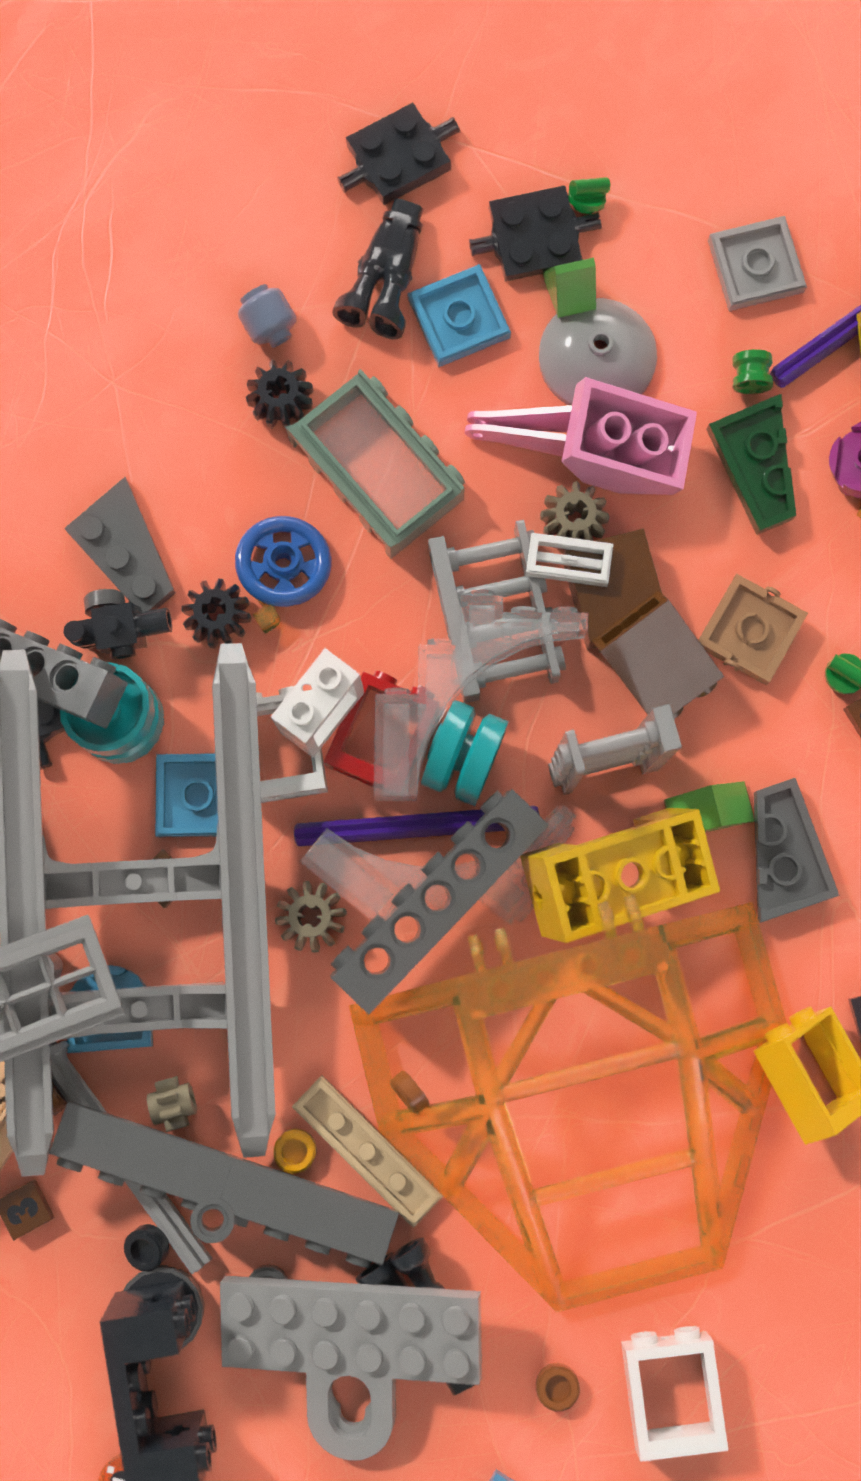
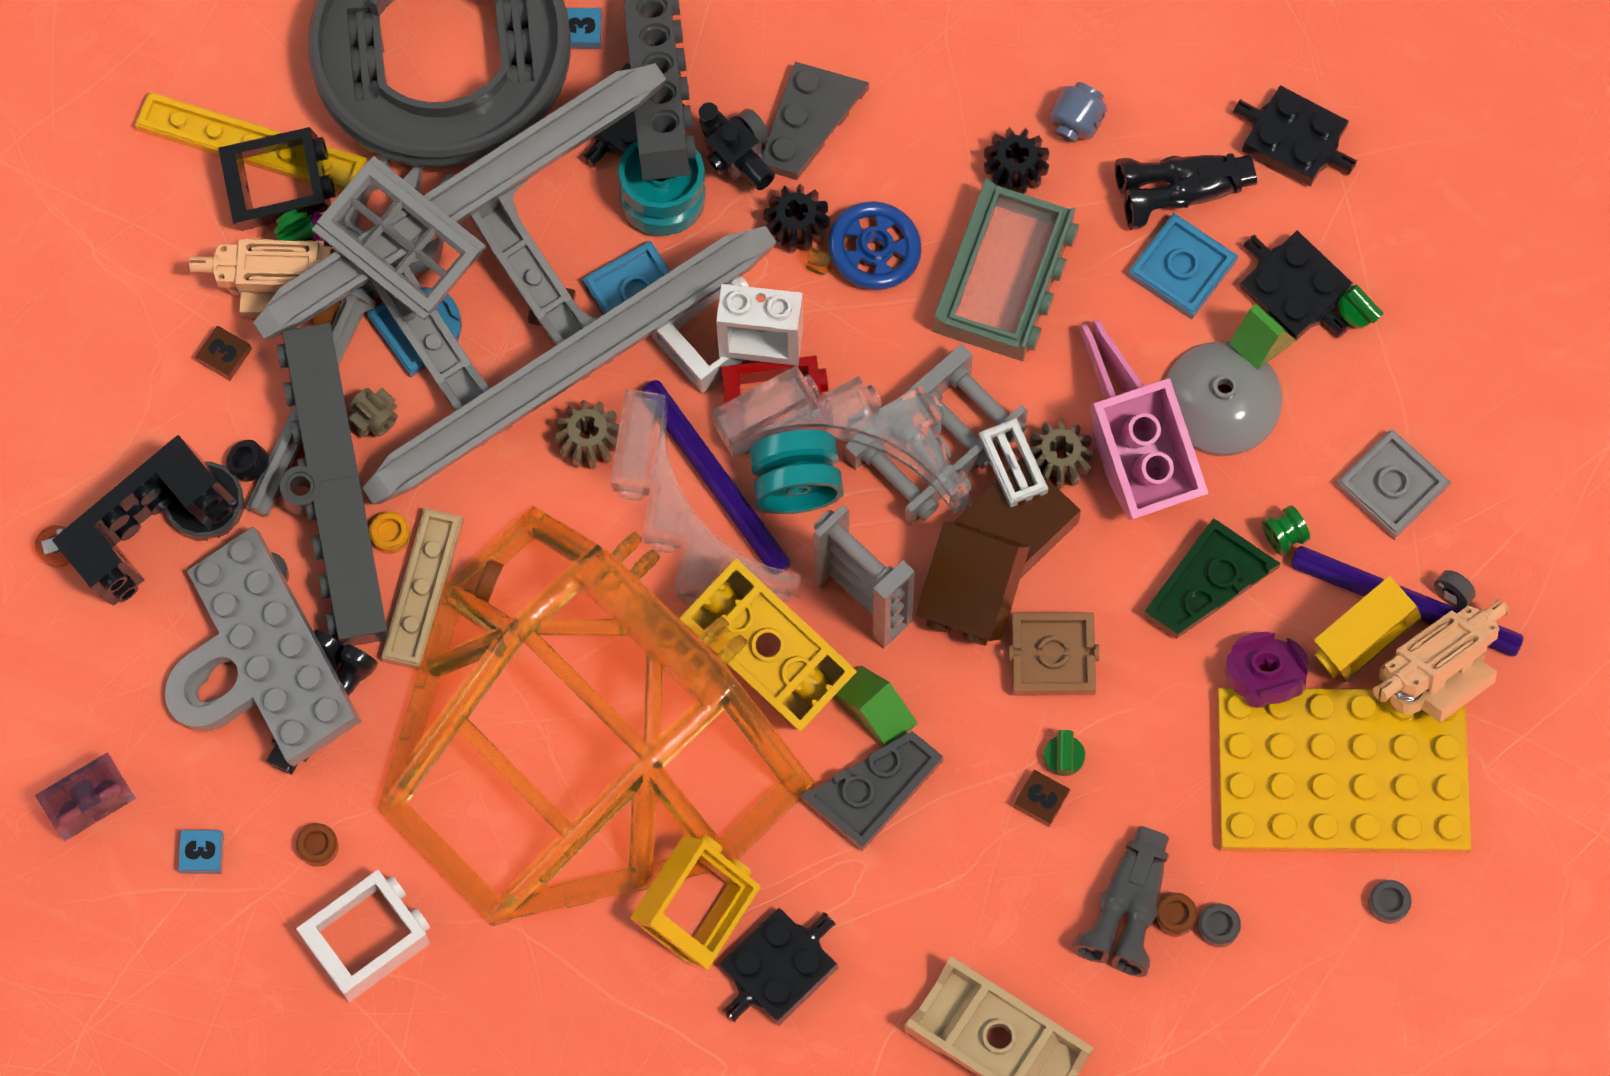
camera: 60 degrees right, 10 degrees down
(521, 829) = (754, 546): dark grey brick -> none

